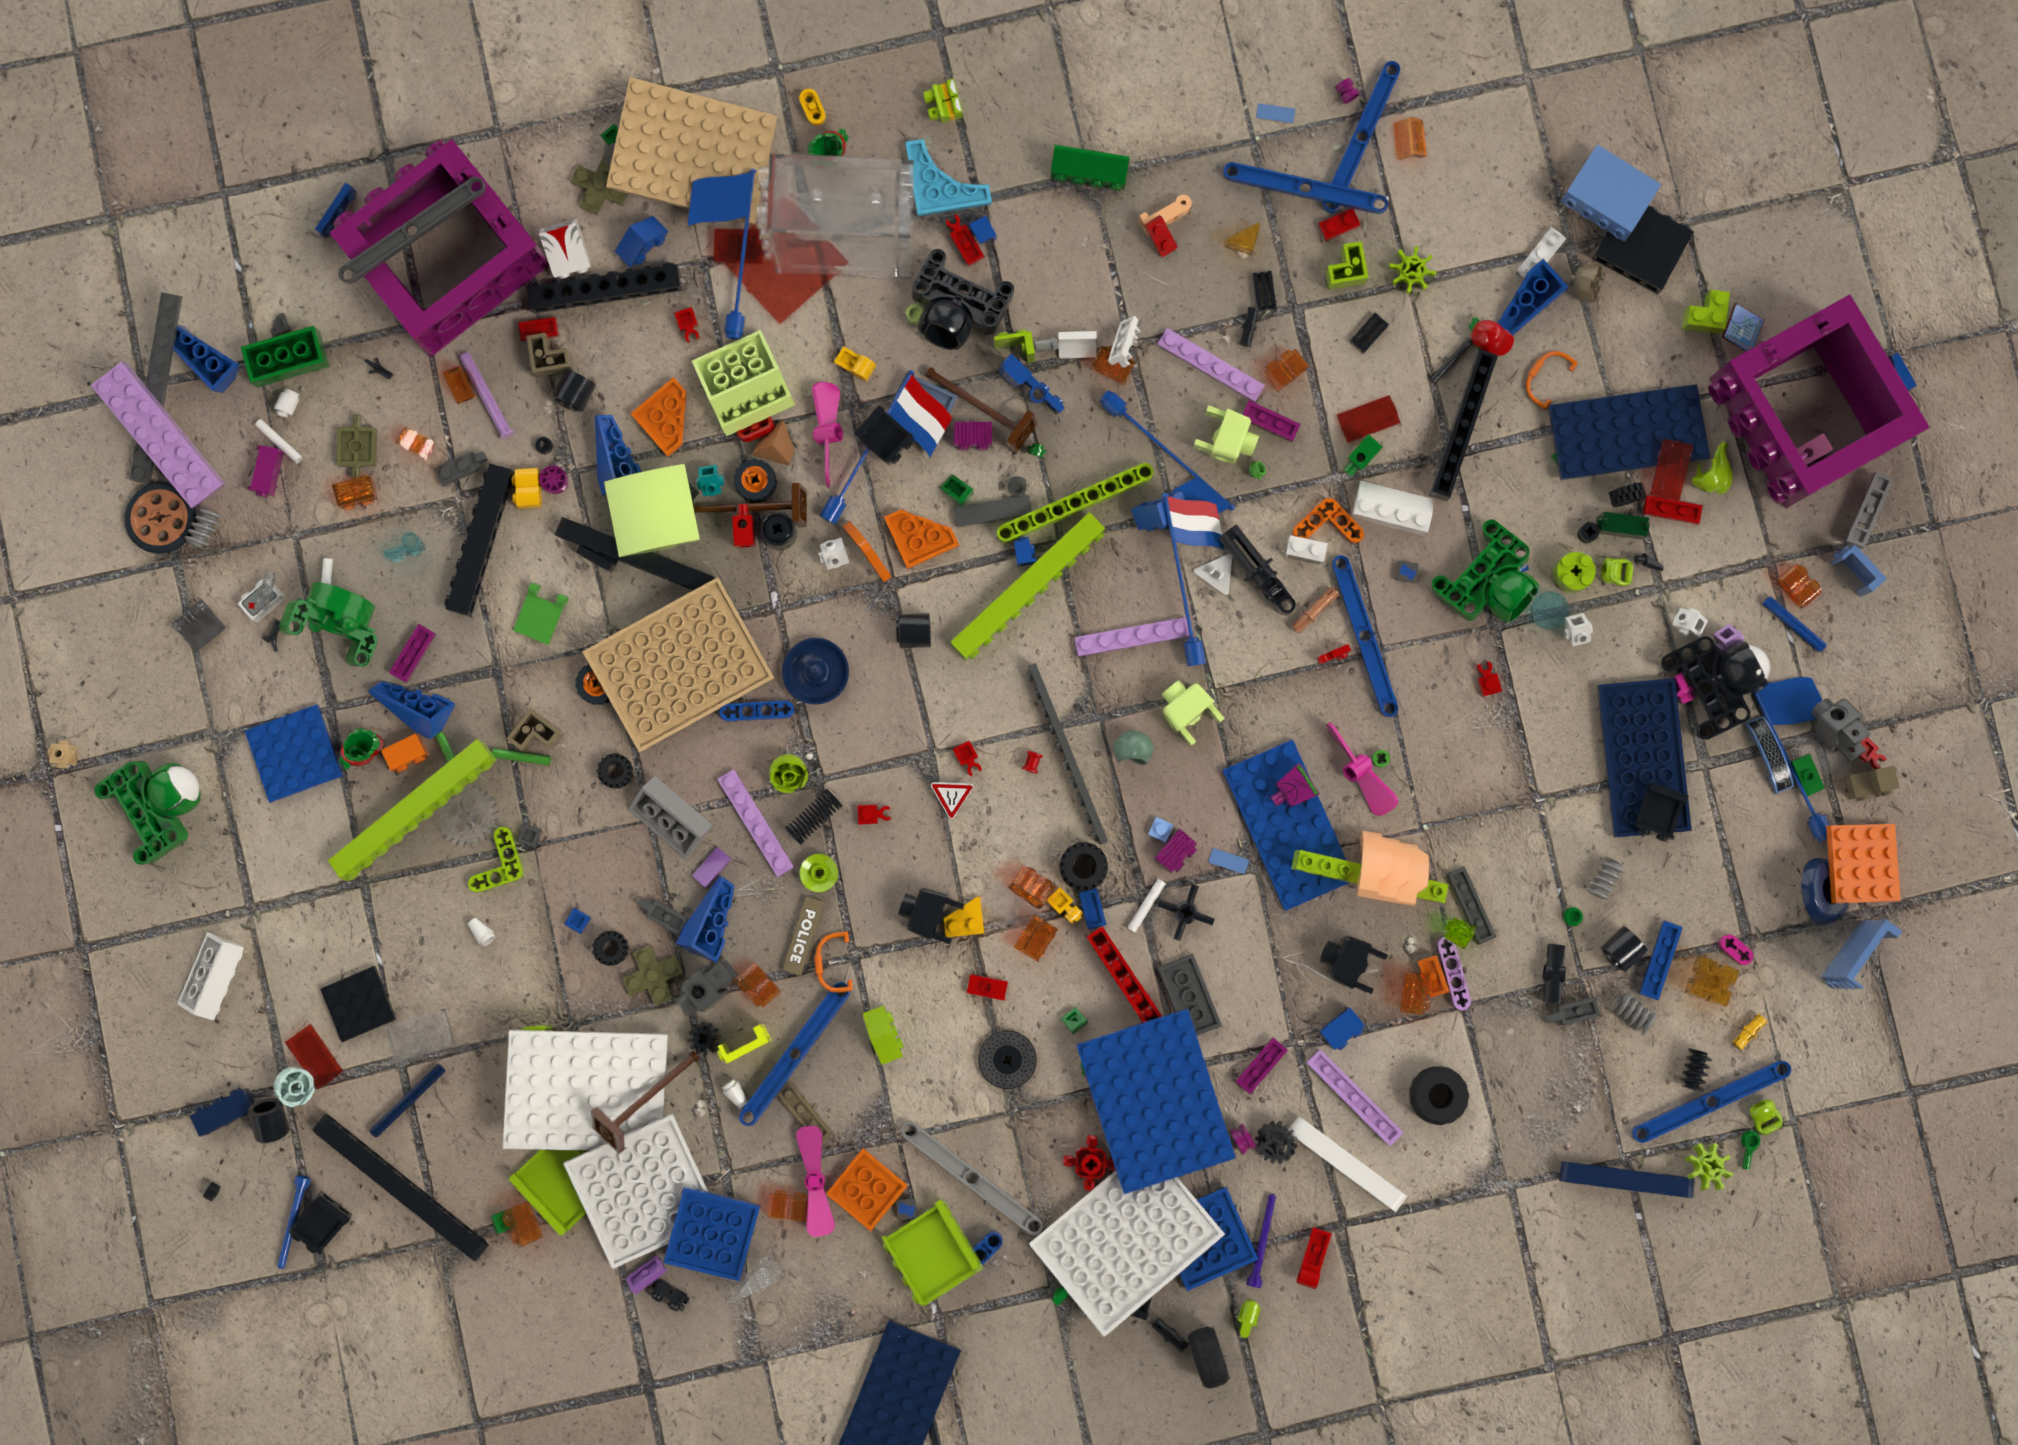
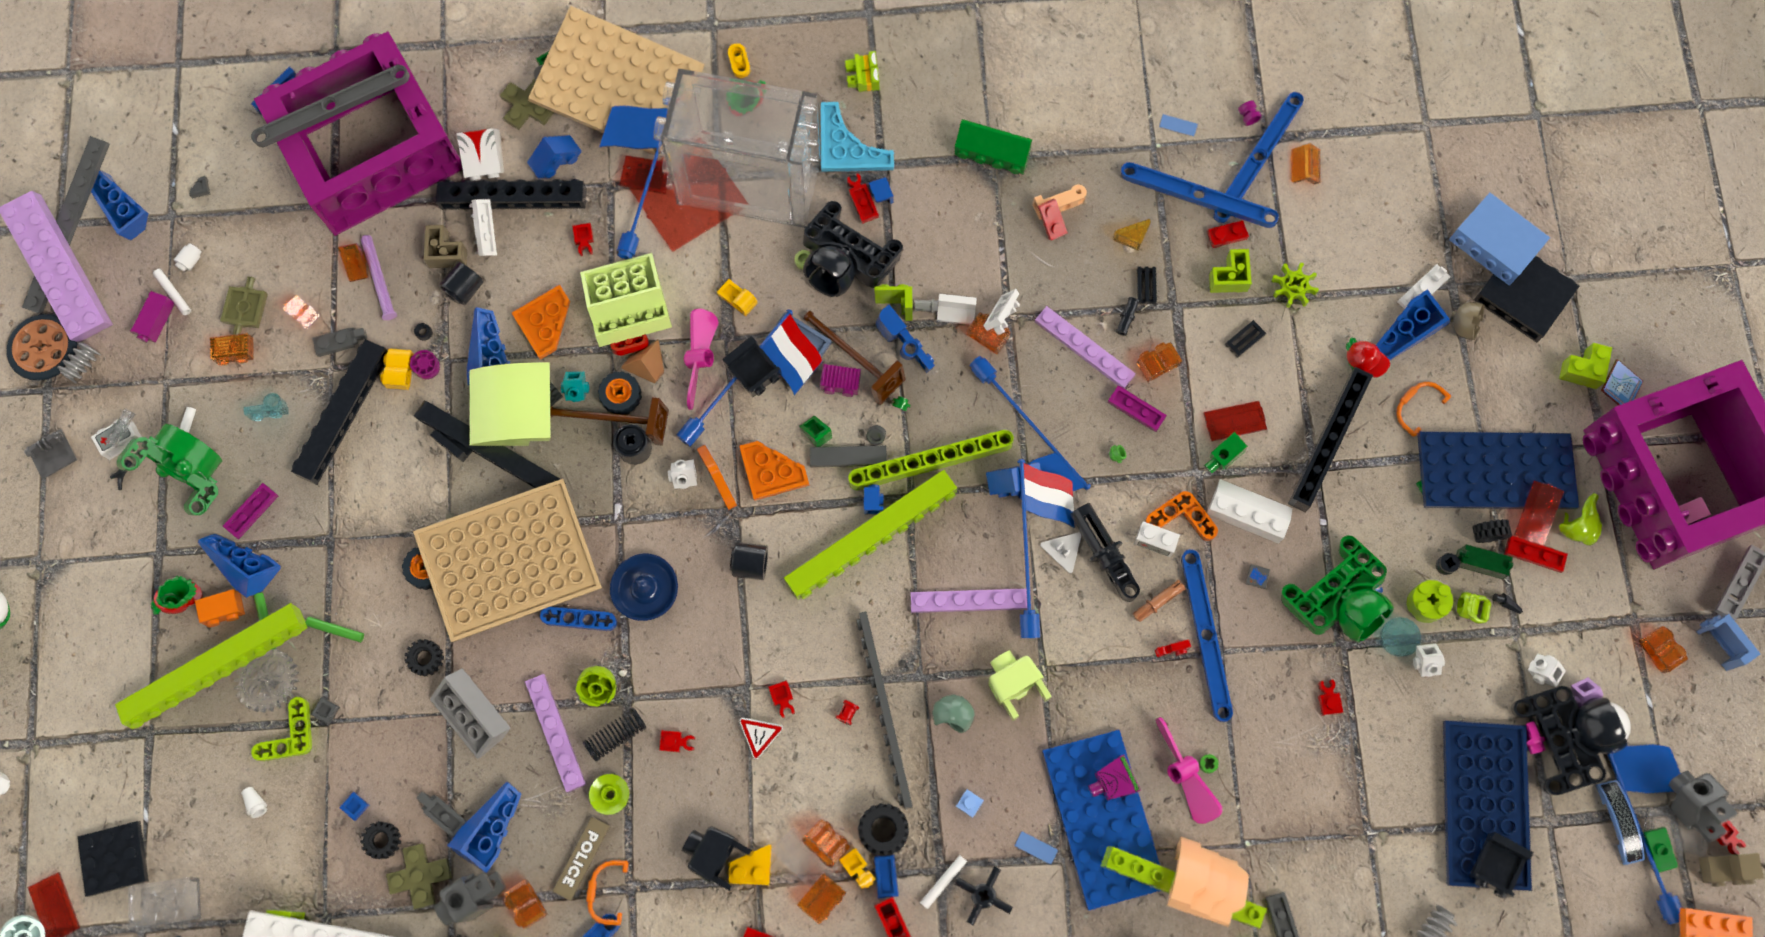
camera: 10 degrees right, 10 degrees down
(285, 356) = (195, 214): green brick -> none
(294, 753) = (111, 592): blue plate -> none
(378, 368) = (282, 239): black bar -> none
(533, 727) = (348, 602): dark tan brick -> none
(538, 326) = (450, 221): red plate -> none
(539, 616) = (383, 493): bright green flag -> none
(585, 329) = (483, 228): none -> white plate
(711, 867) = (501, 772): medium lavender slope -> none
(745, 536) = (598, 444): red torso -> none
(1176, 851) = (982, 828): magenta brick -> none
(1230, 438) = (1095, 418): yellowish green piece -> none
(1452, 359) = (1323, 377): black bar -> none
(1797, 626) = (1655, 688): blue axle -> none

